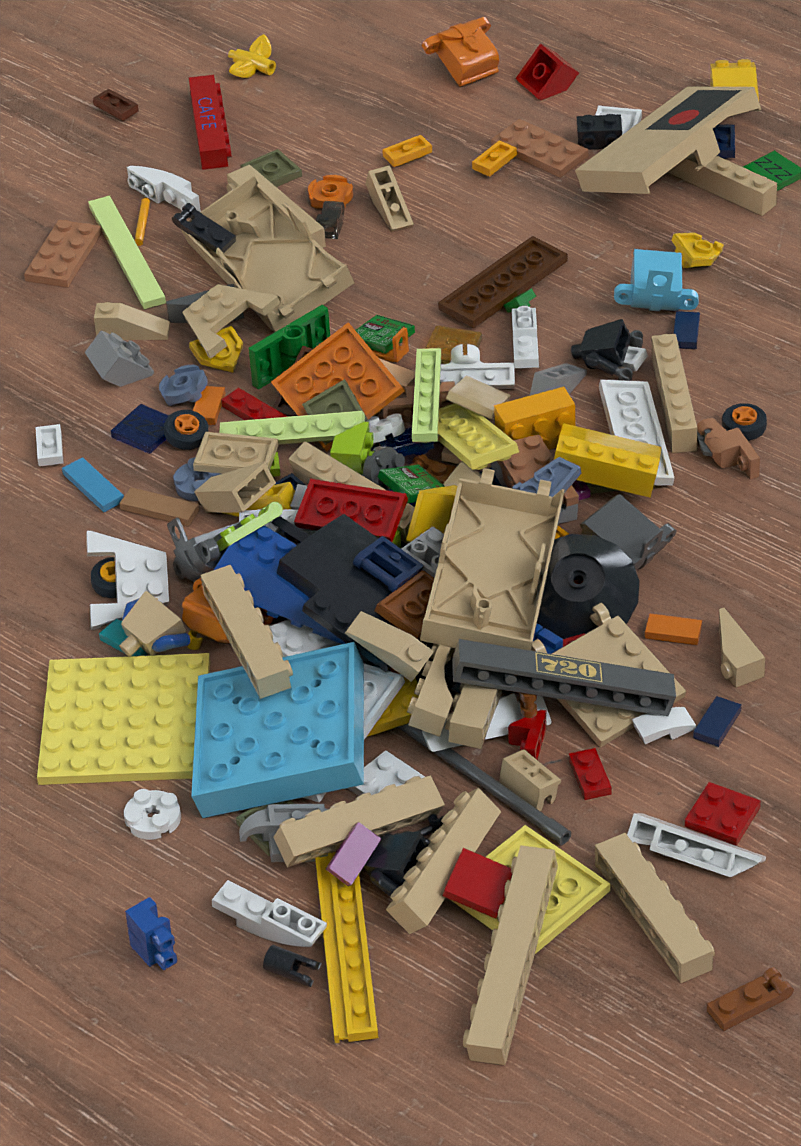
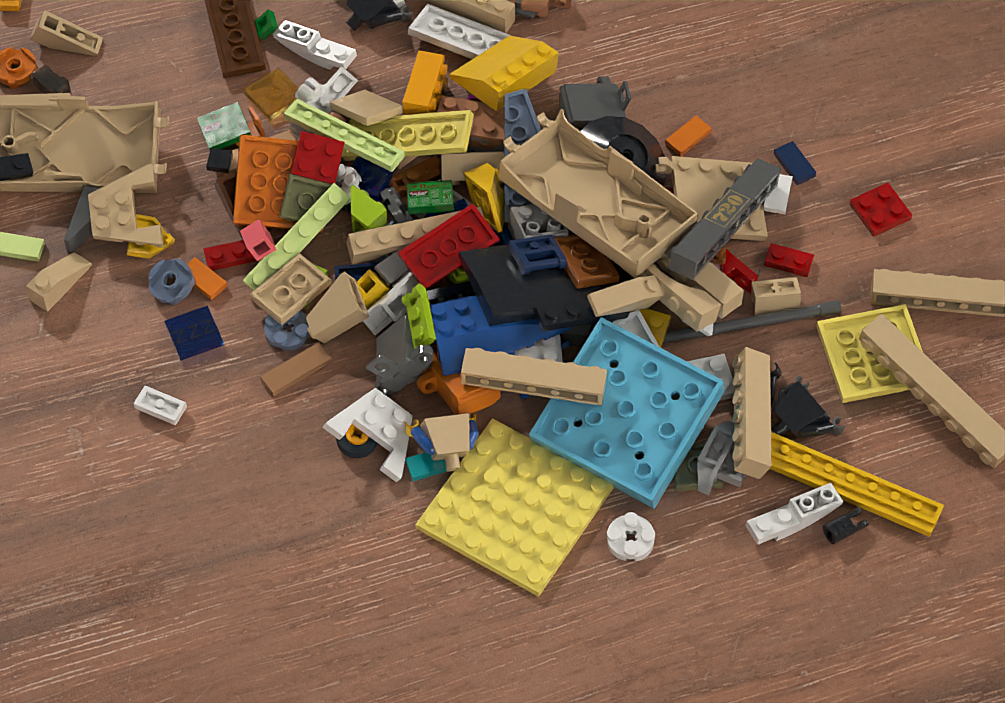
camera: 60 degrees left, 15 degrees up
(92, 484) = (231, 399): dark azure tile -> none
(117, 359) = (99, 308): light grey slope -> none
(151, 935) = (766, 595): blue hips -> none
(185, 429) = (233, 304): black wheel -> none
(262, 403) = (258, 240): none -> coral brick
(280, 350) = (201, 189): green plate -> none
(353, 854) = (784, 431): tile -> none
(378, 387) = (317, 157): none -> red plate
(424, 883) = (823, 384): tan brick -> none
(478, 883) = (861, 374): red tile -> none
(556, 377) = (382, 56): light grey slope -> none
(691, 846) = (898, 242): white wedge -> none
(739, 656) = (742, 114): tan slope -> none

